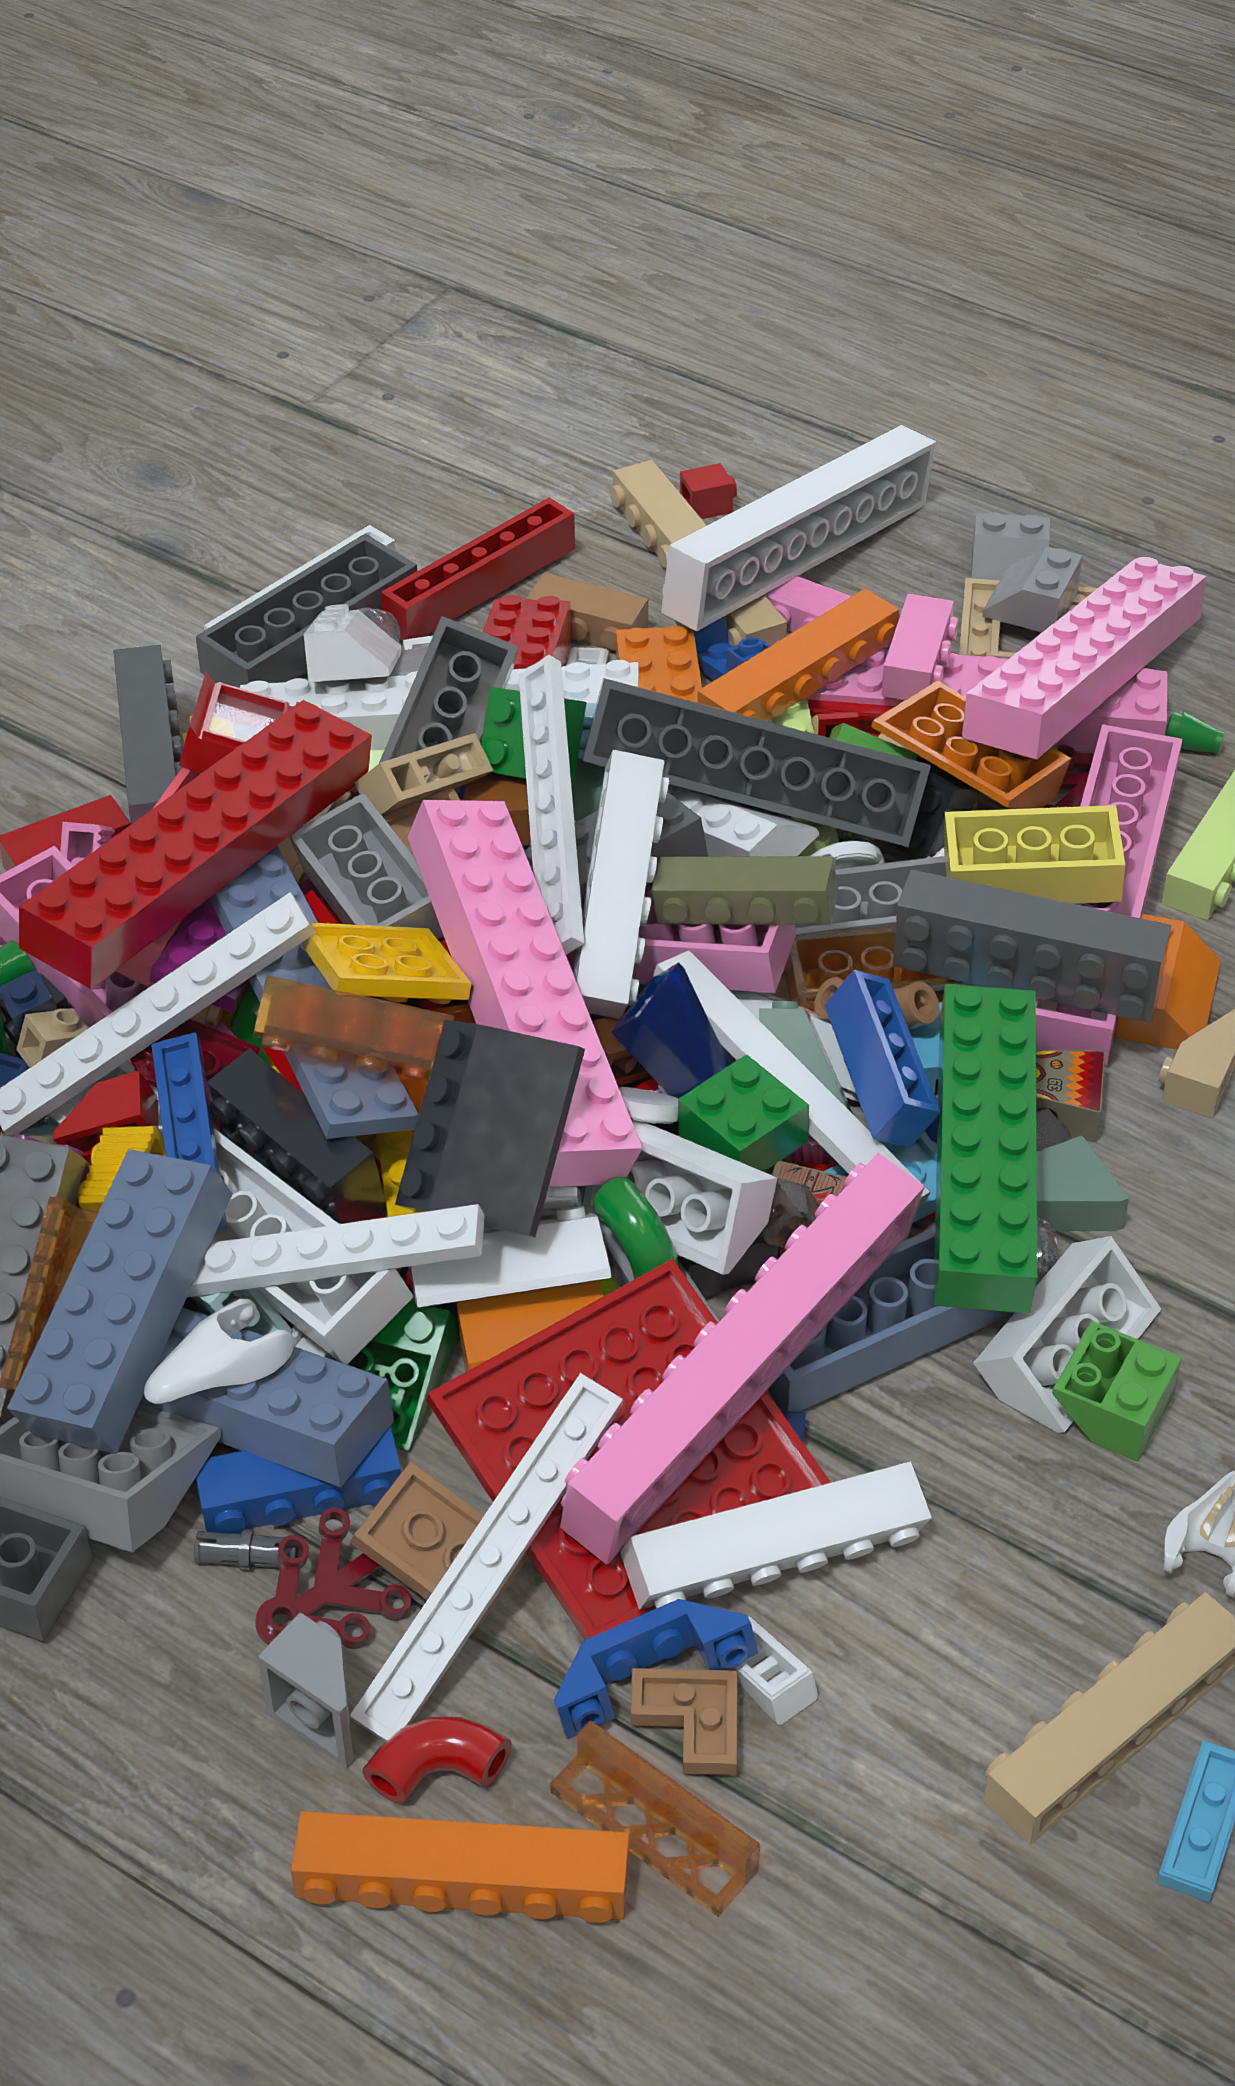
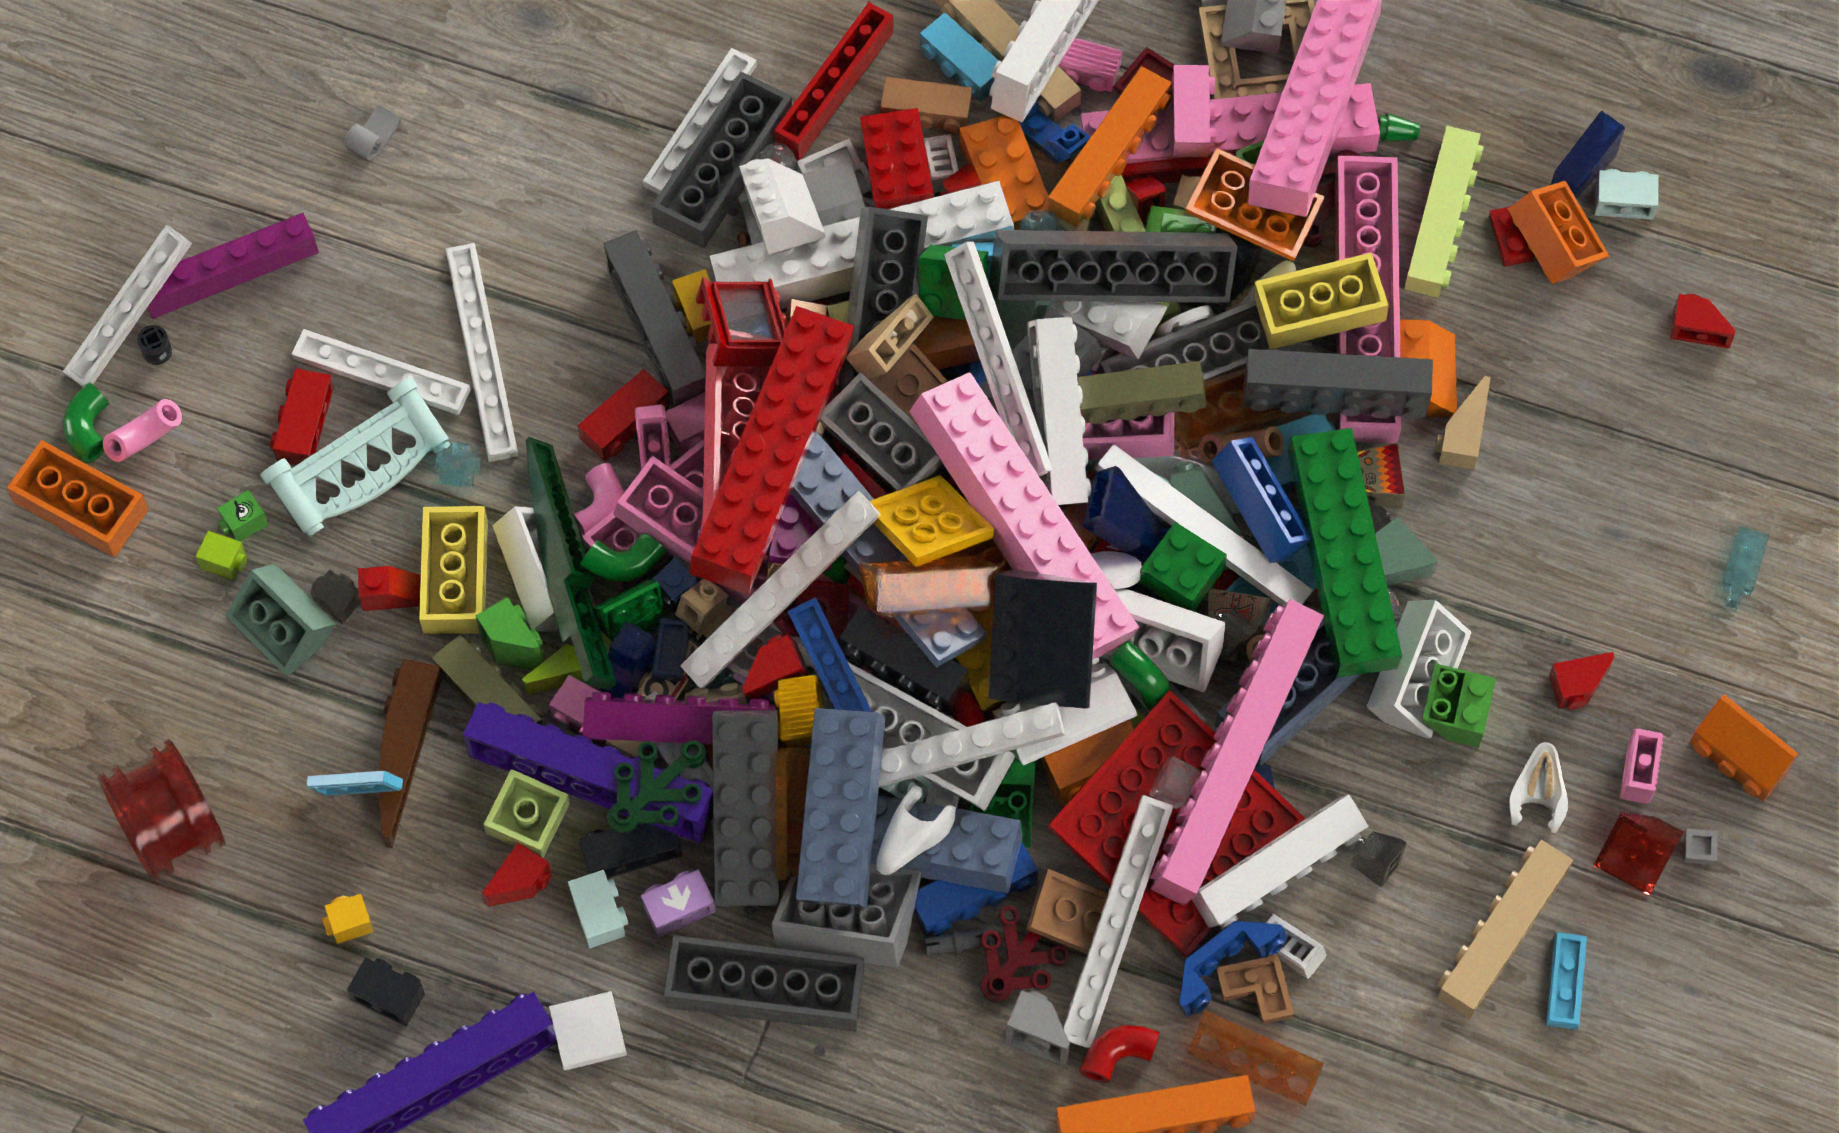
camera: 15 degrees left, 20 degrees up
(635, 1371) = (1174, 782): none -> clear brick
(638, 569) = (959, 55): none -> medium azure brick
(938, 1567) = (1378, 856): none -> clear smoke slope

